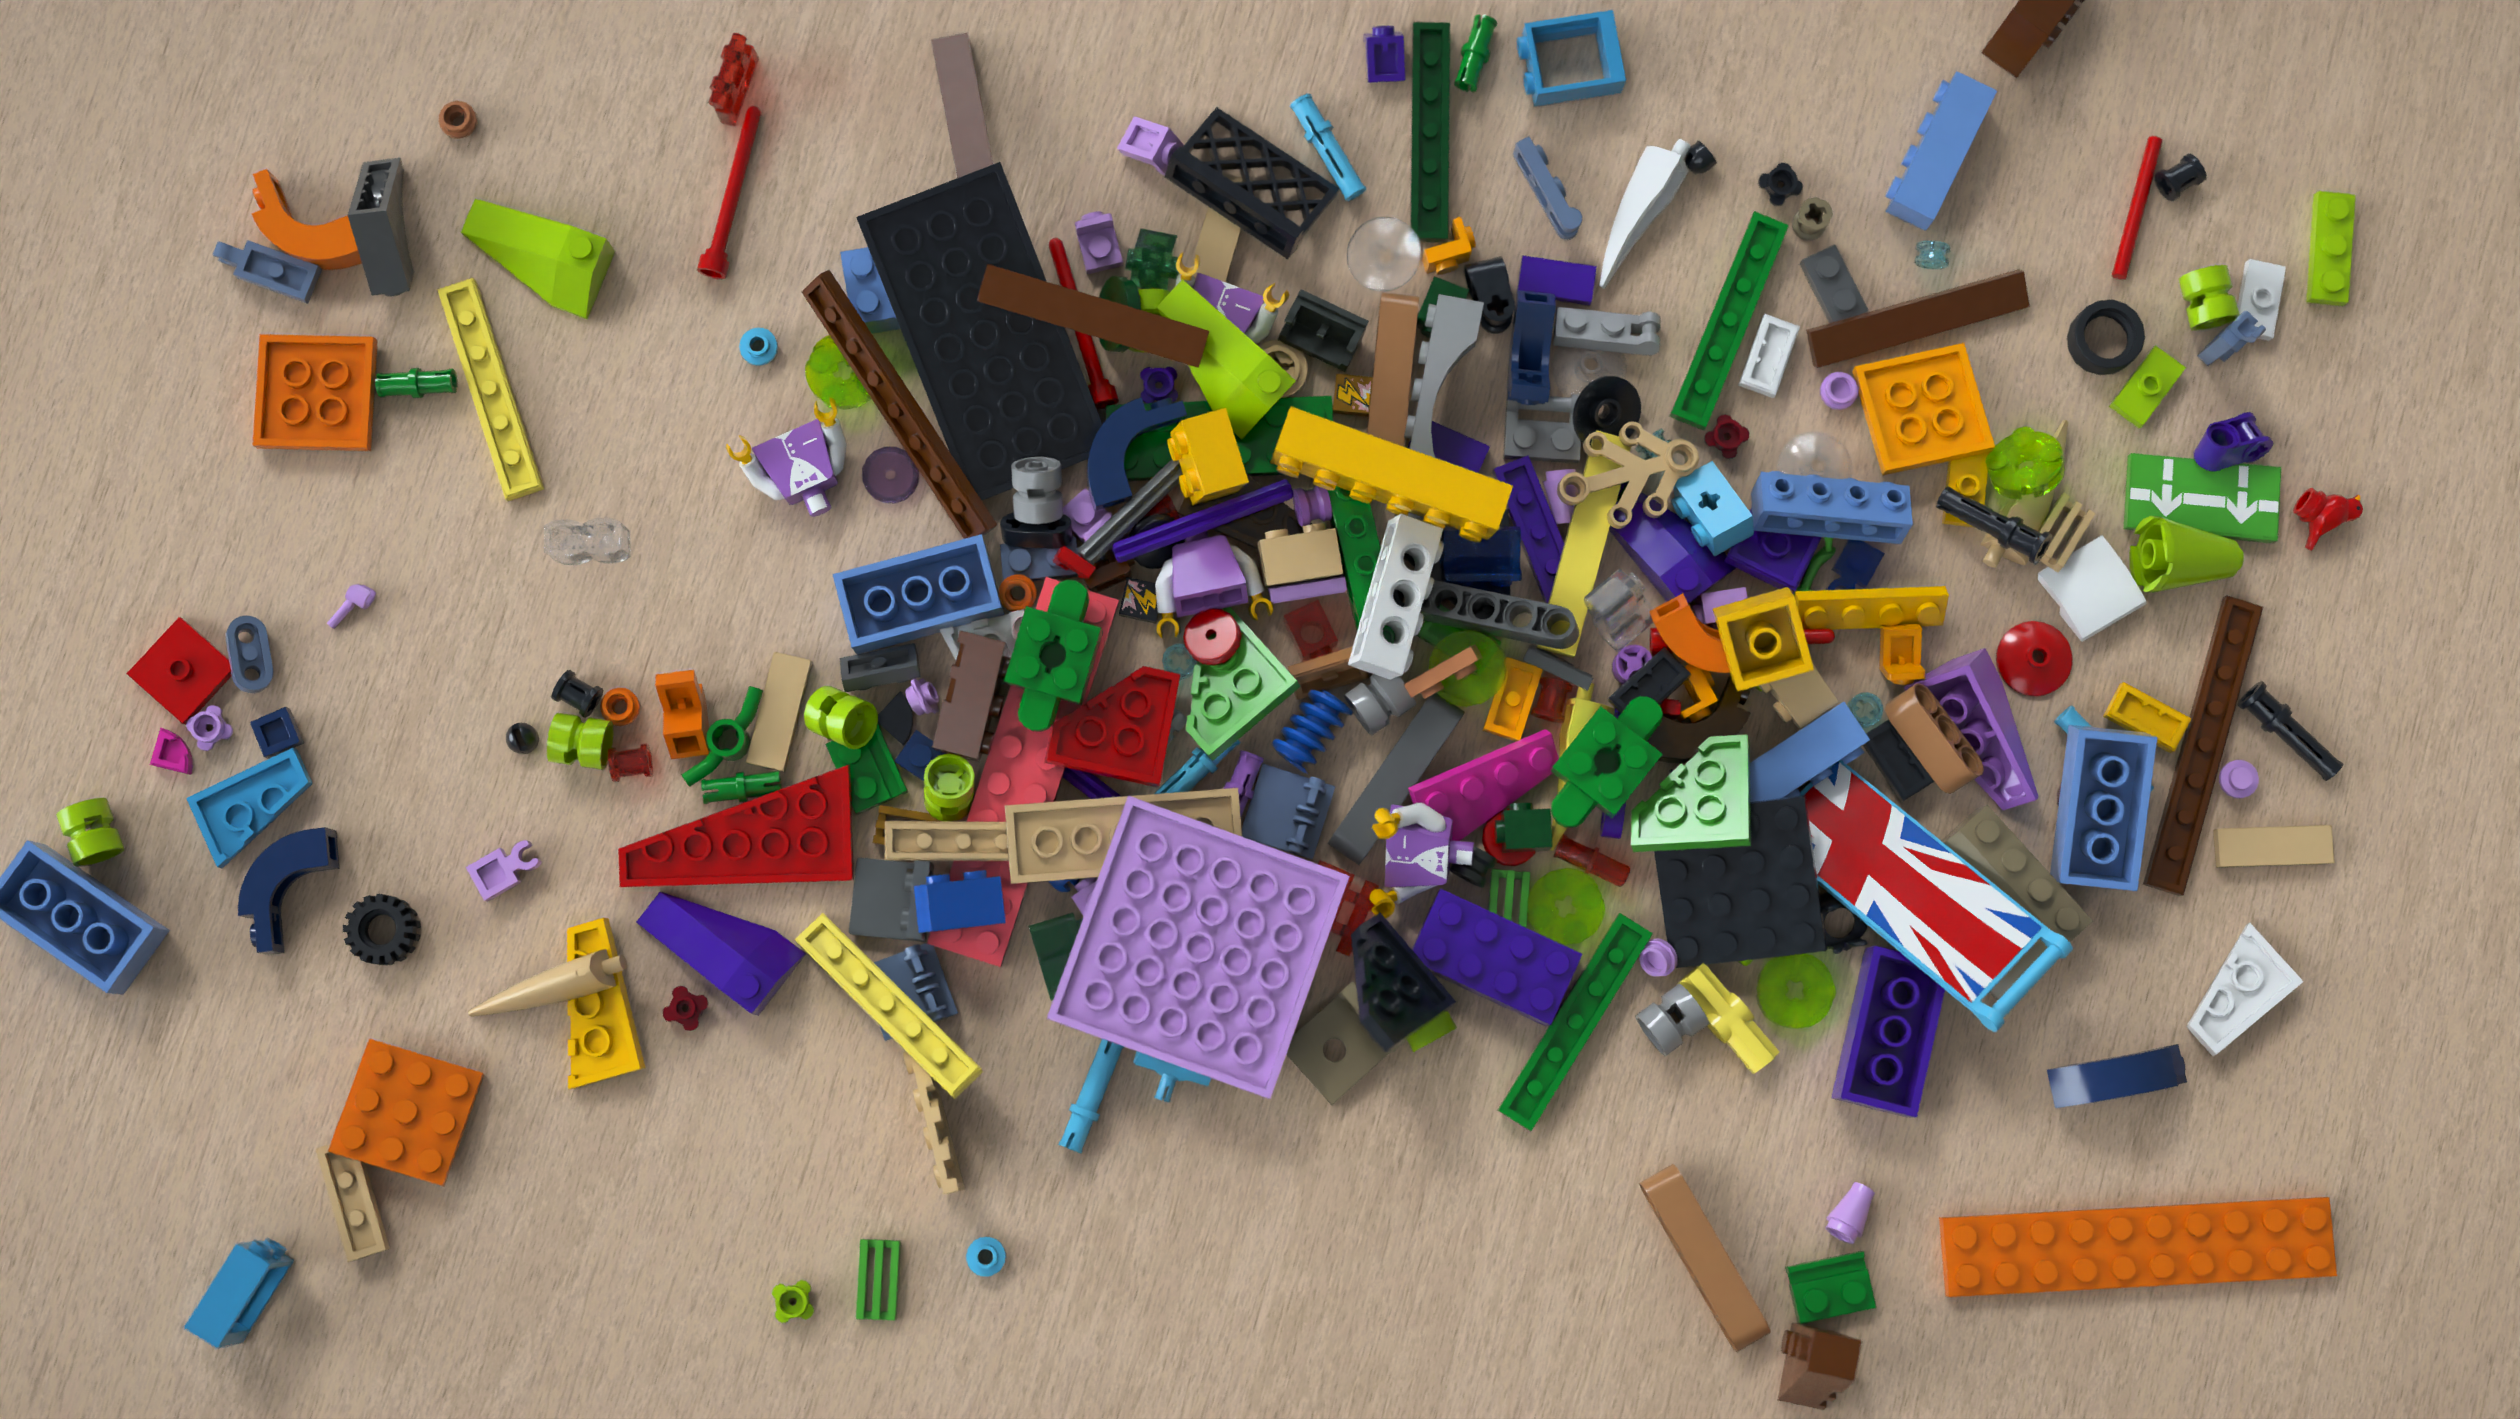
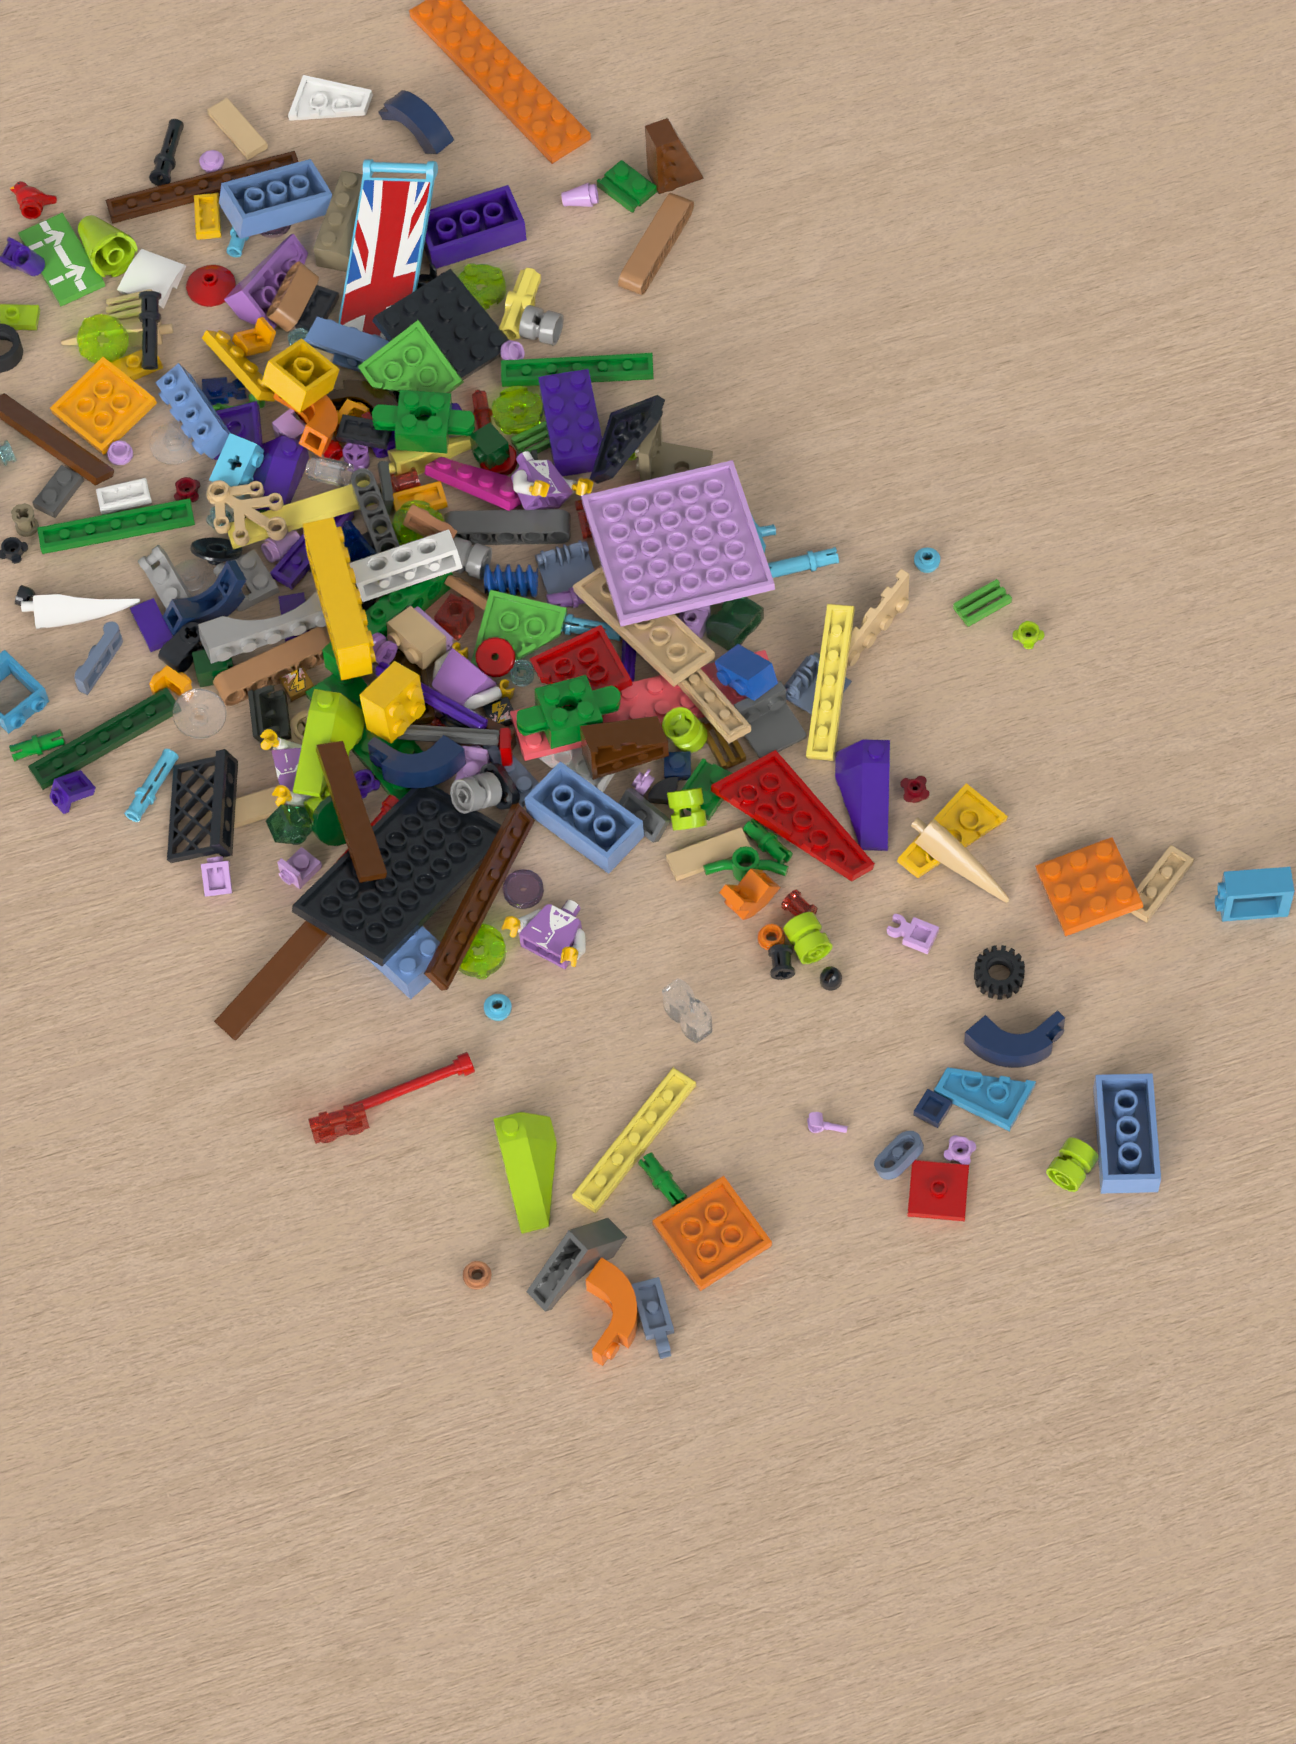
camera: 115 degrees left, 20 degrees down
(172, 753) = (992, 1162): dark pink tile -> none
(1009, 601) = (541, 768): orange plate -> none

